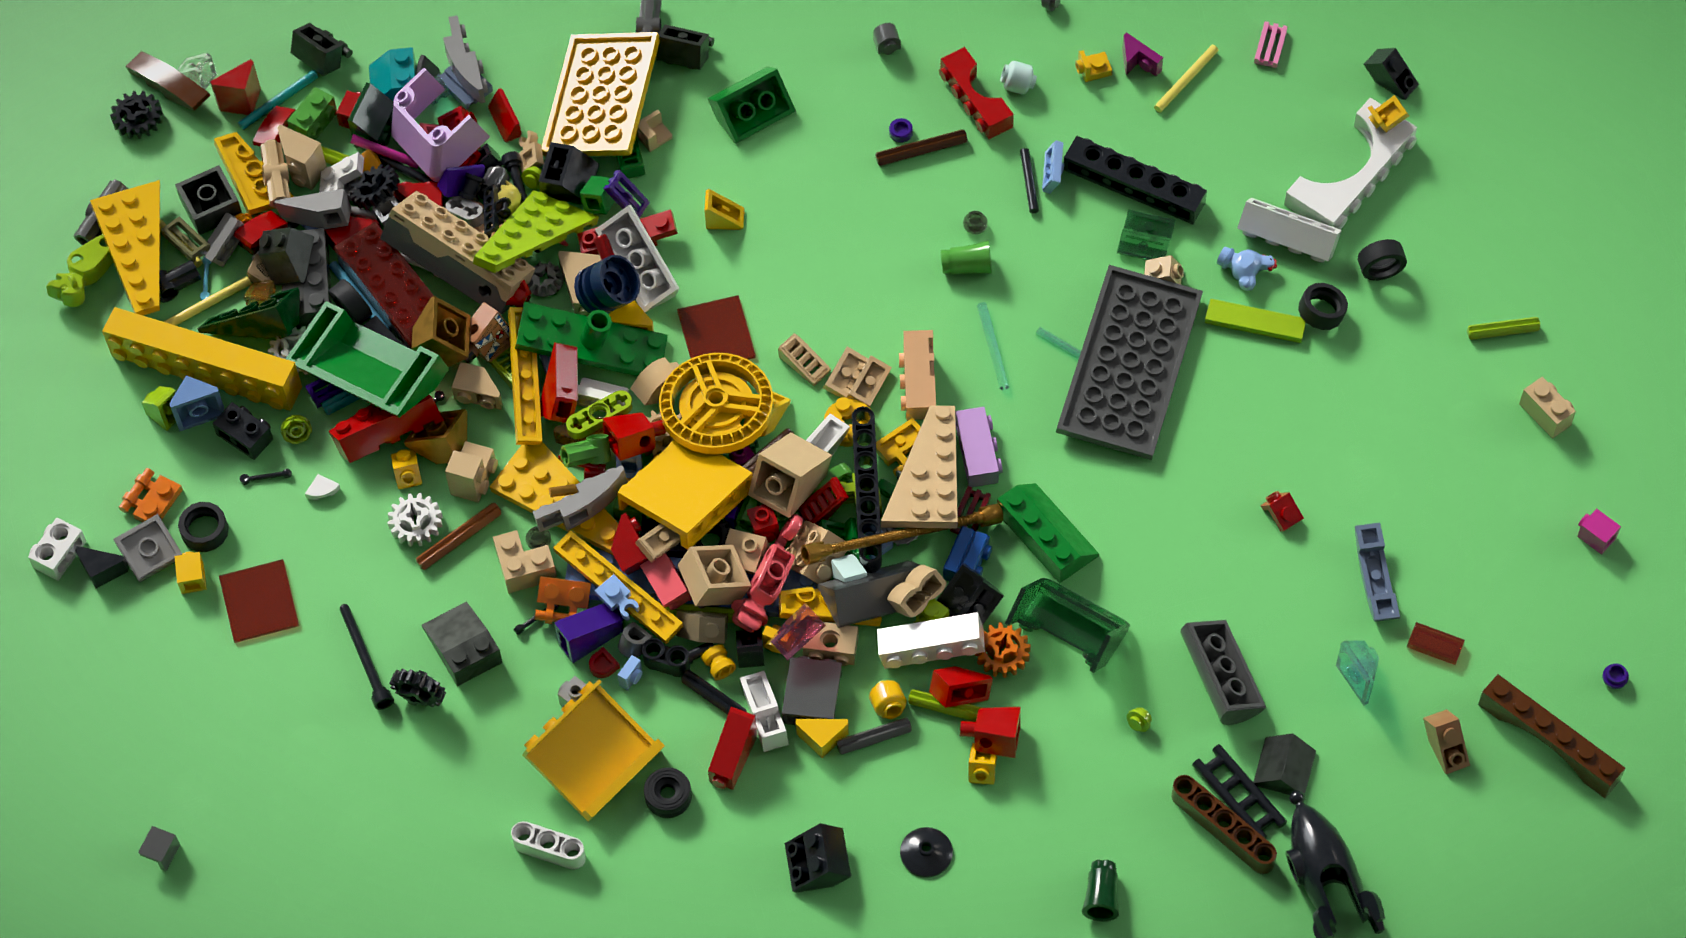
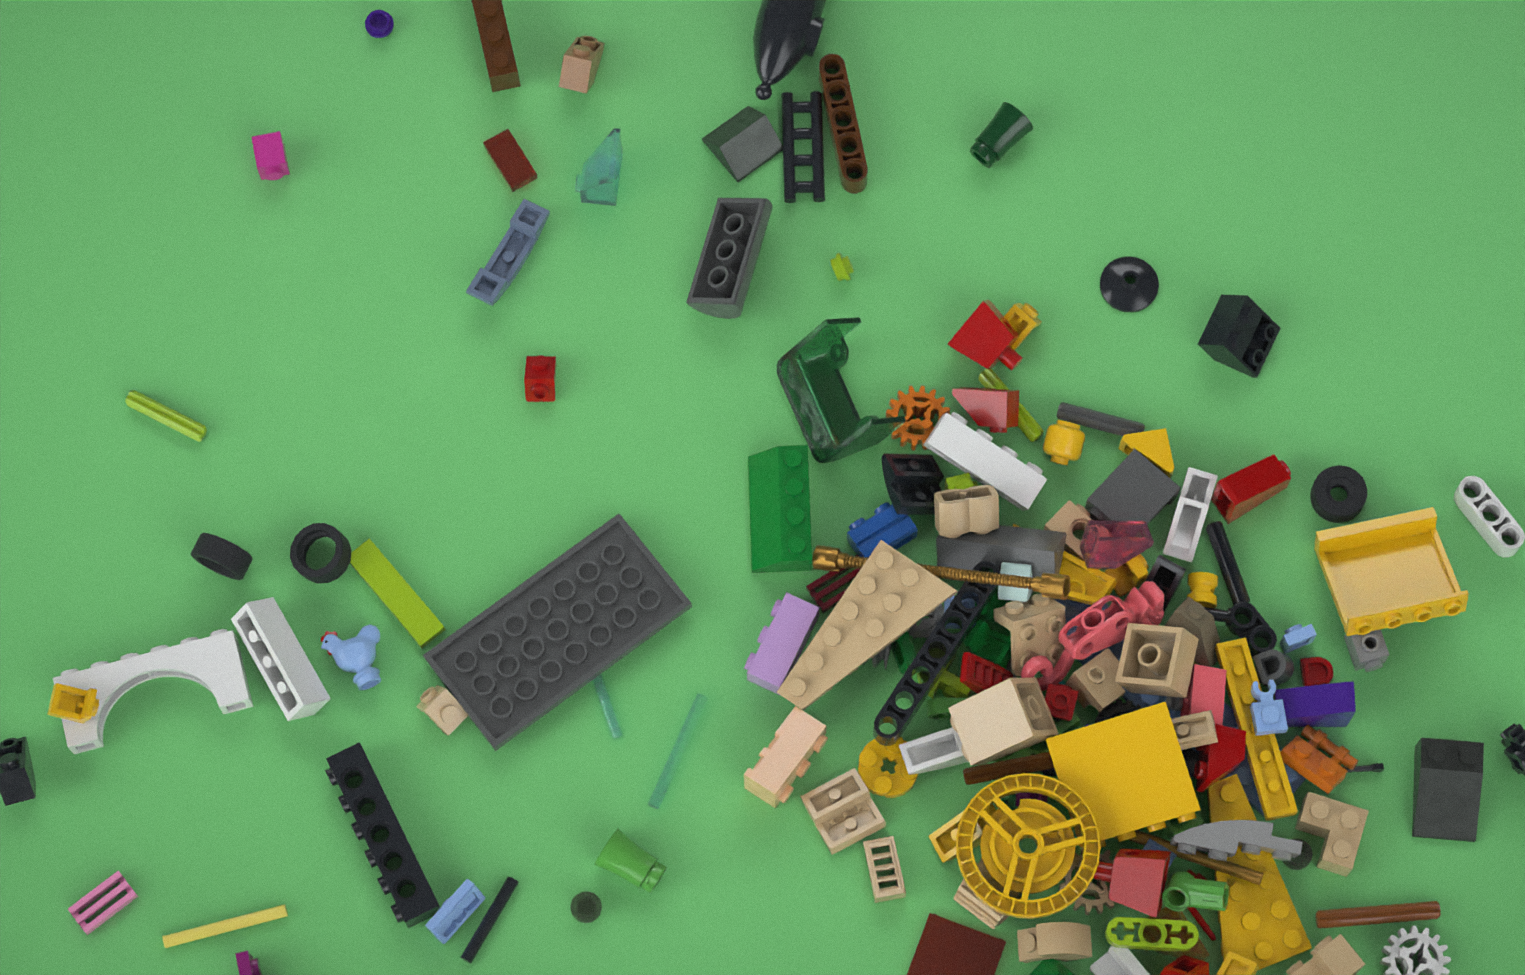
camera: 145 degrees left, 10 degrees up
(897, 444) = (855, 703): yellow plate -> none
(1145, 235) = (424, 764): clear green slope -> none
(1547, 407) = (204, 301): tan brick -> none

